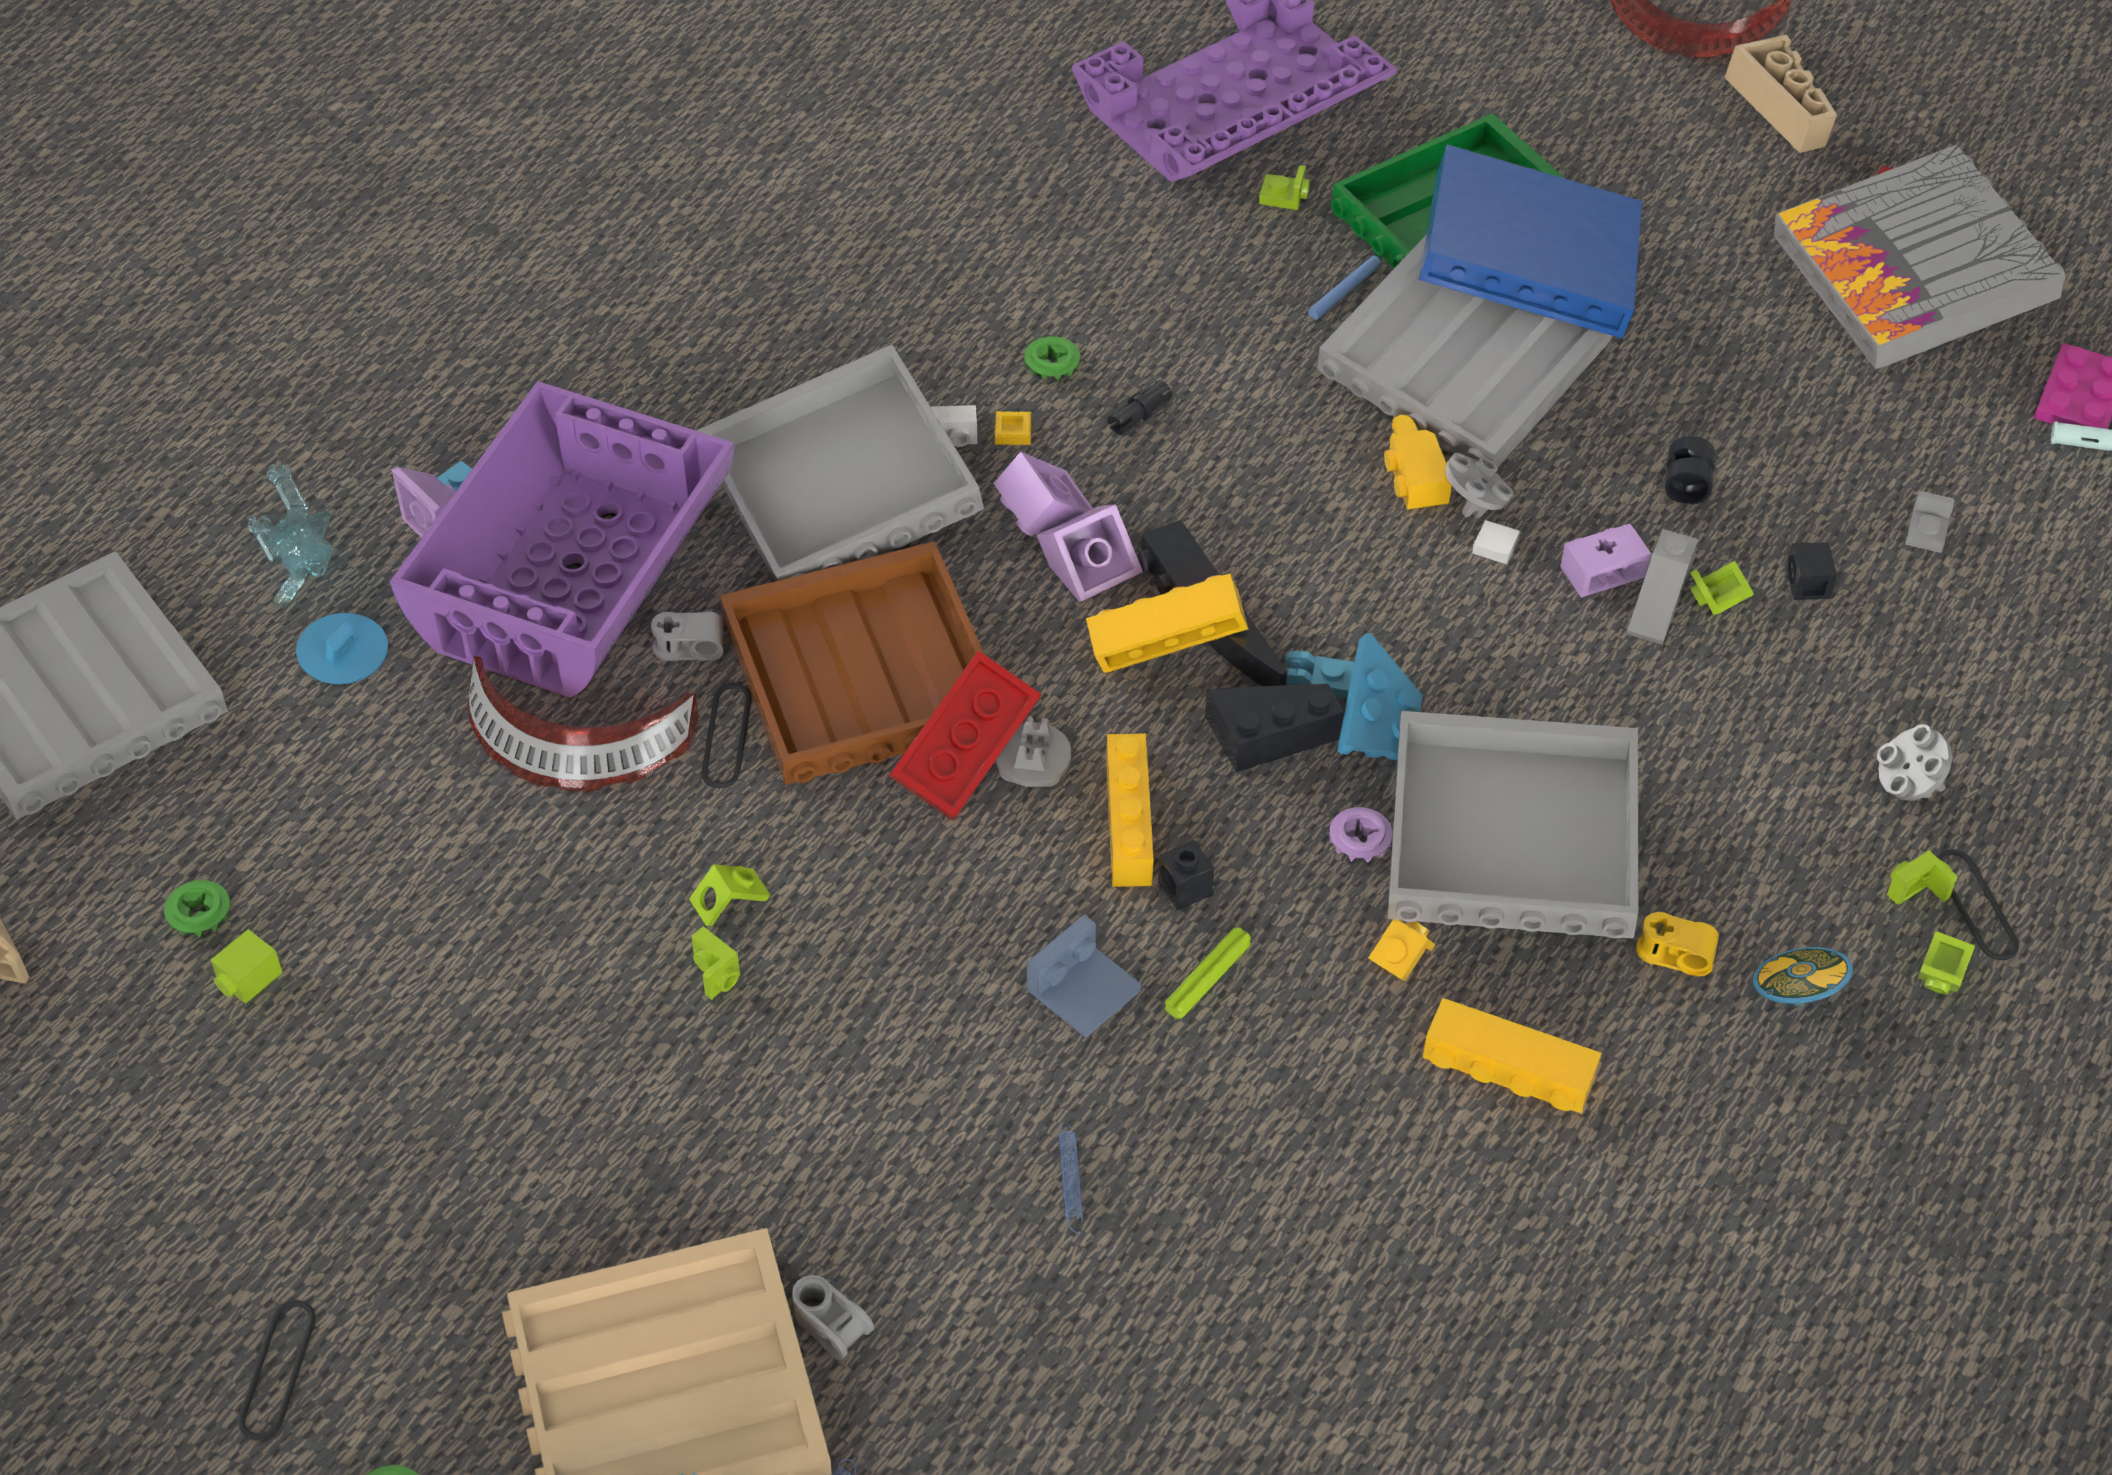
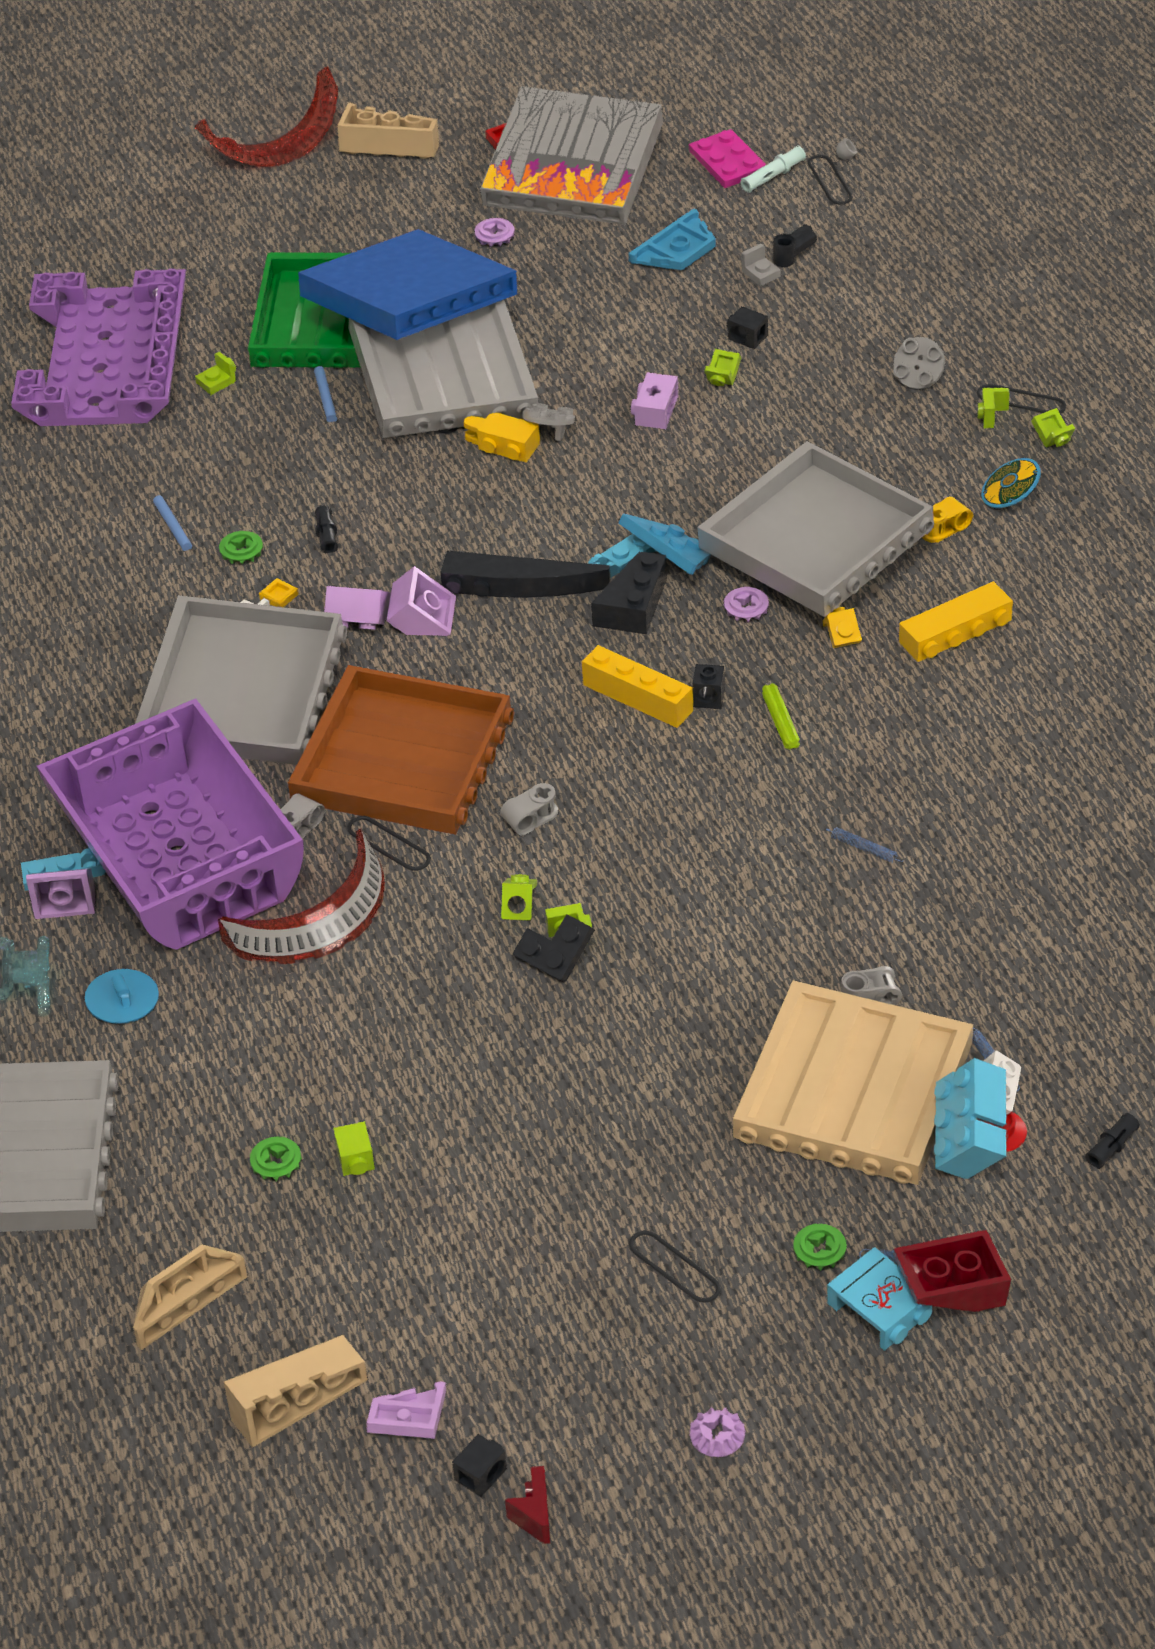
camera: 50 degrees left, 5 degrees down
(662, 976) = (557, 955): none -> black plate
(856, 825) = (530, 811): none -> light grey piece
(965, 735) = (517, 723): red plate -> none
(1035, 755) = (548, 710): light grey plate -> none
(1040, 286) = (172, 523): none -> medium blue bar
(1079, 979) = (738, 771): sand blue bracket -> none
(1166, 623) = (523, 594): yellow brick -> none
(1496, 542) = (592, 438): white tile -> none
(1662, 586) = (698, 388): light grey slope -> none
(1690, 470) = (628, 331): black wheel -> none
(1738, 260) = (485, 231): none -> lavender gear
(1885, 429) = (676, 244): none -> dark azure wing
(1985, 528) = (790, 245): none -> black piece

